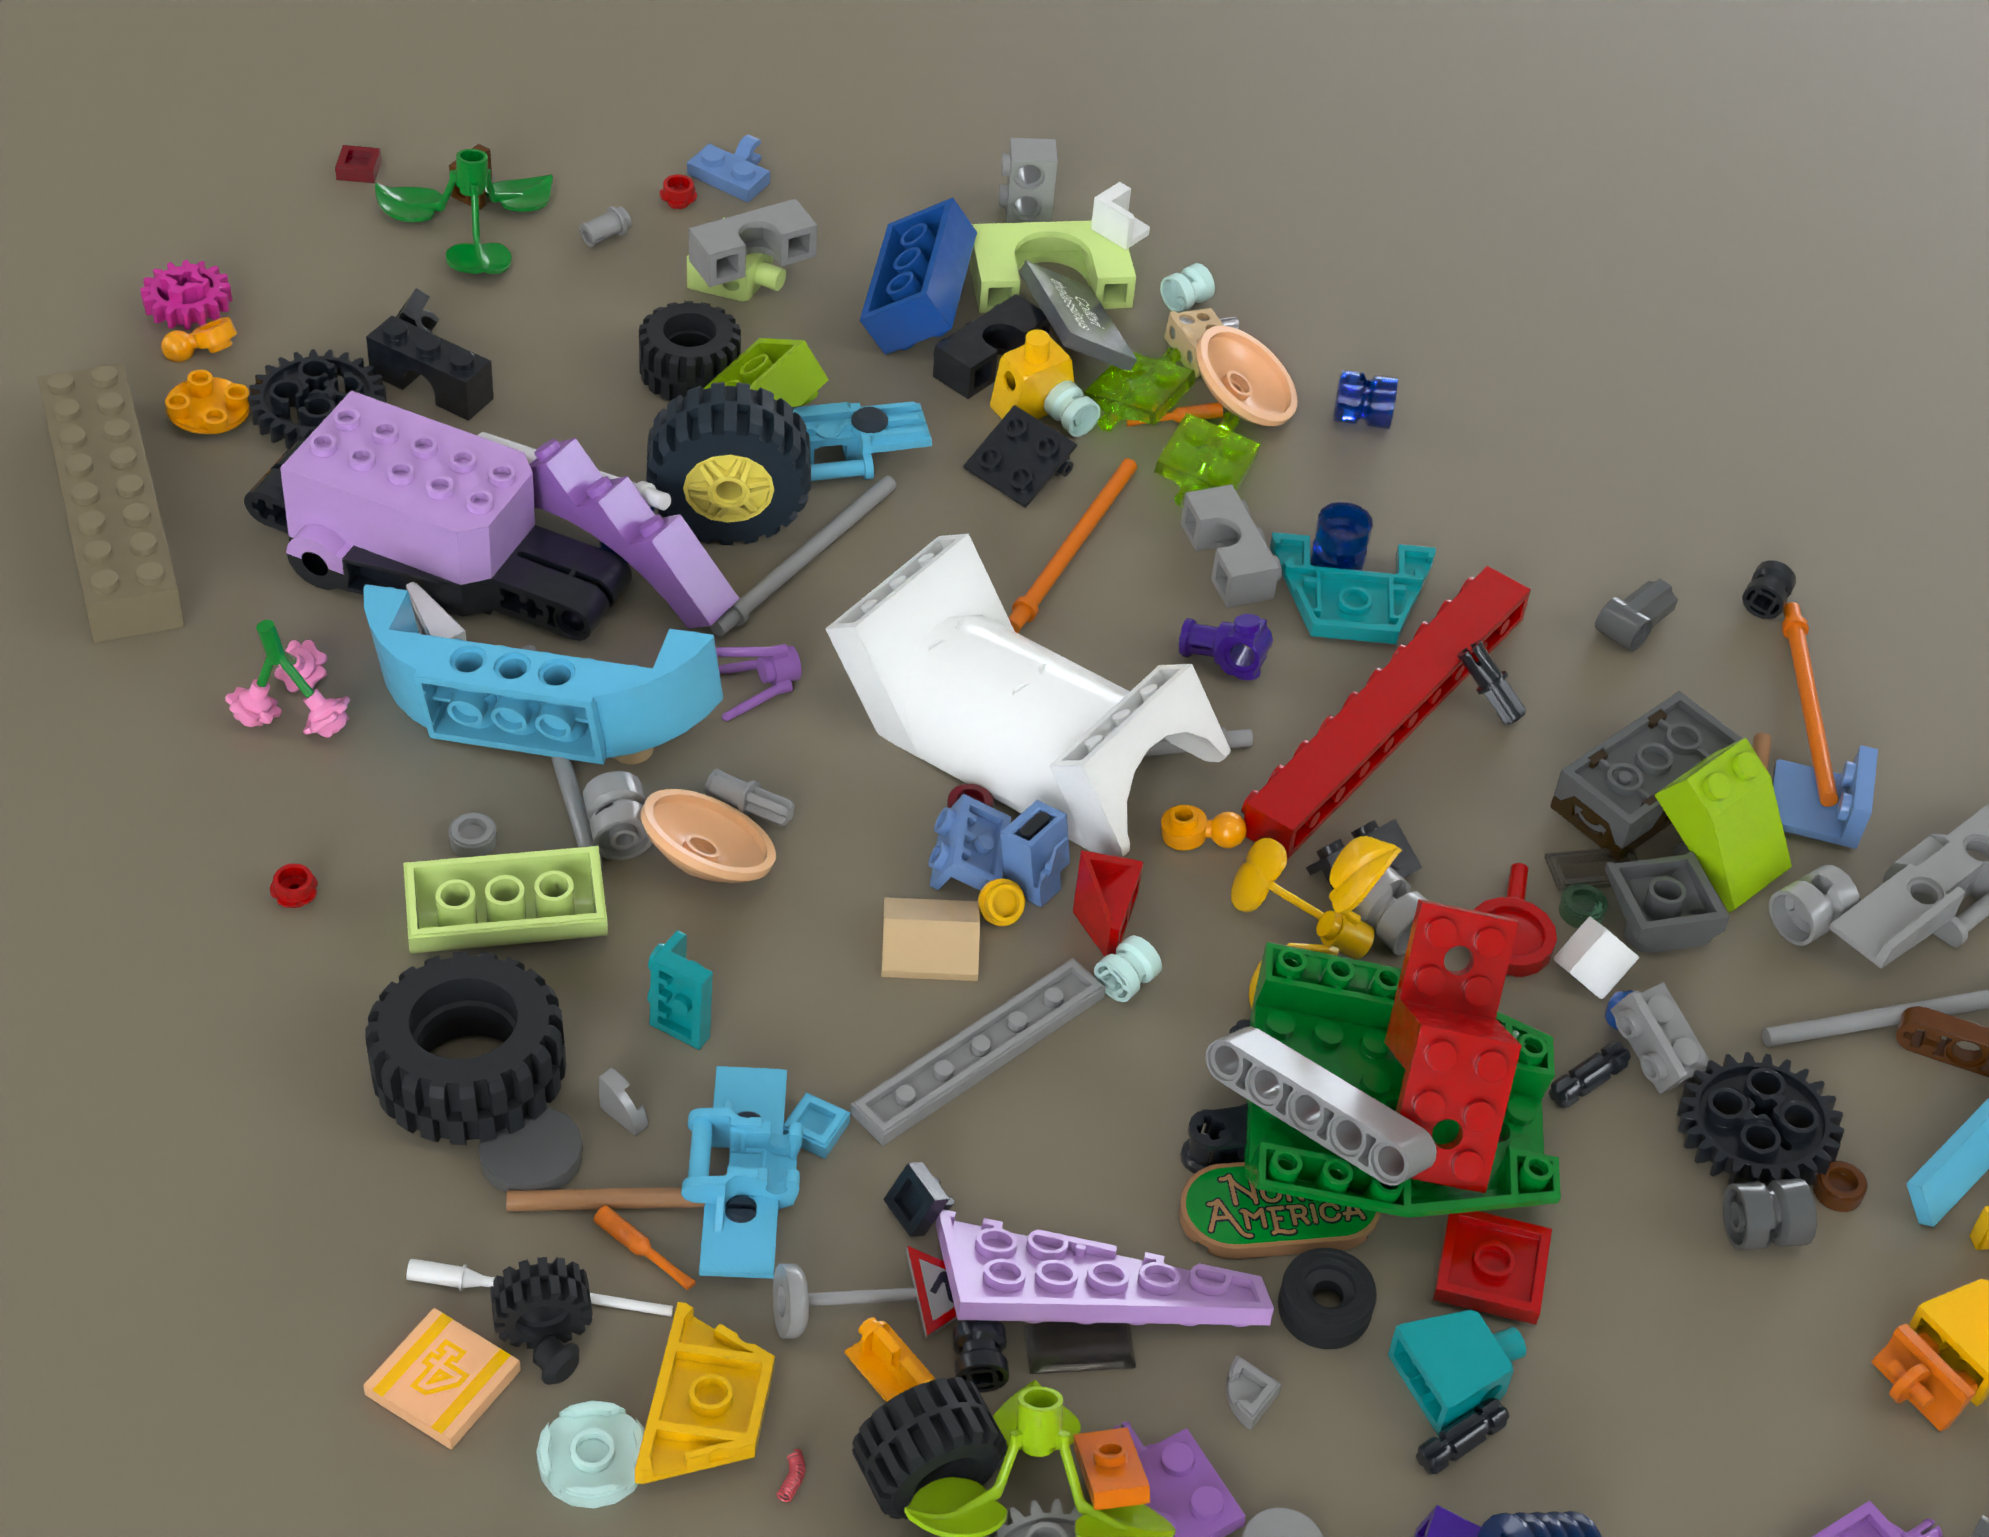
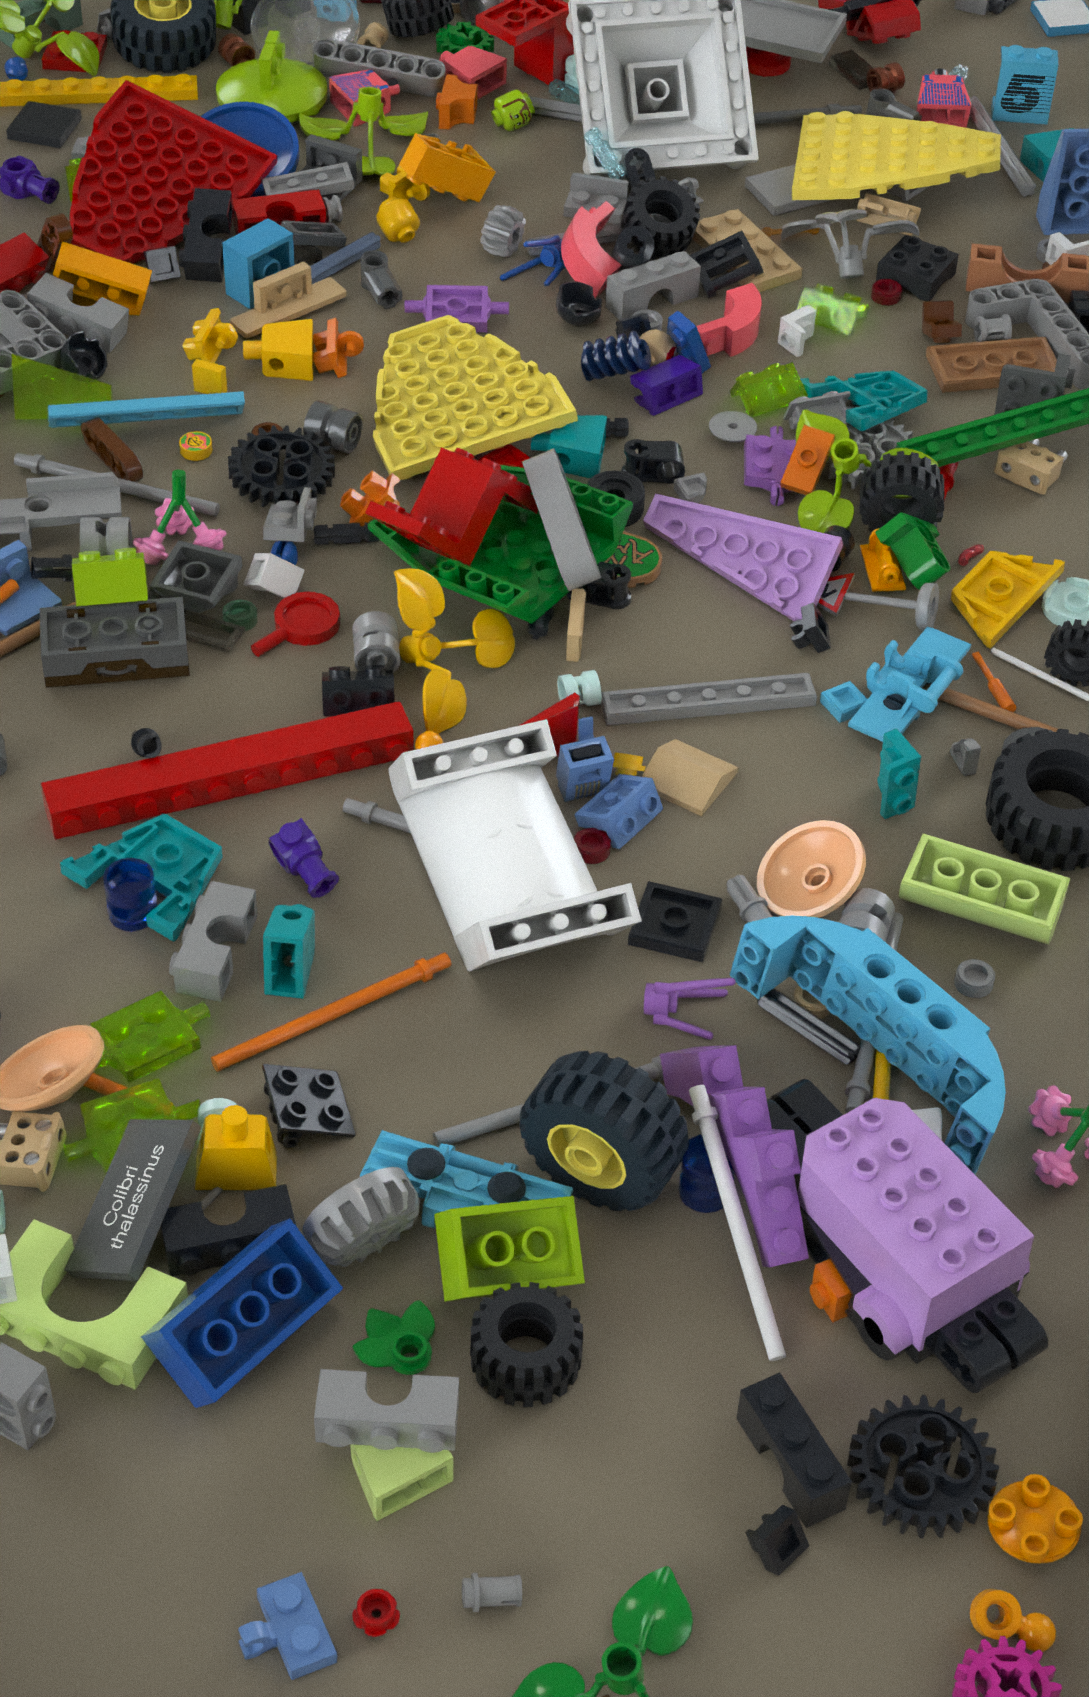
camera: 145 degrees left, 0 degrees up
(802, 327) = (395, 1336): none -> green plate
(824, 763) = (675, 921): none -> black tile
(851, 1373) = (915, 548): none -> green tile
(885, 356) = (362, 1216): none -> light grey gear
(1154, 549) = (288, 933): none -> teal torso
(1191, 1040) = (575, 625): none -> tan tile
(1330, 1391) = (655, 460): none -> black piece
(1597, 1102) = (376, 490): none -> orange hips
(1673, 1354) = (461, 392): none -> light yellow wing
(1758, 930) = (174, 517): none -> bright pink plant
(1812, 851) = (44, 568): none -> black pin
(1898, 1120) = (195, 446): none -> tile

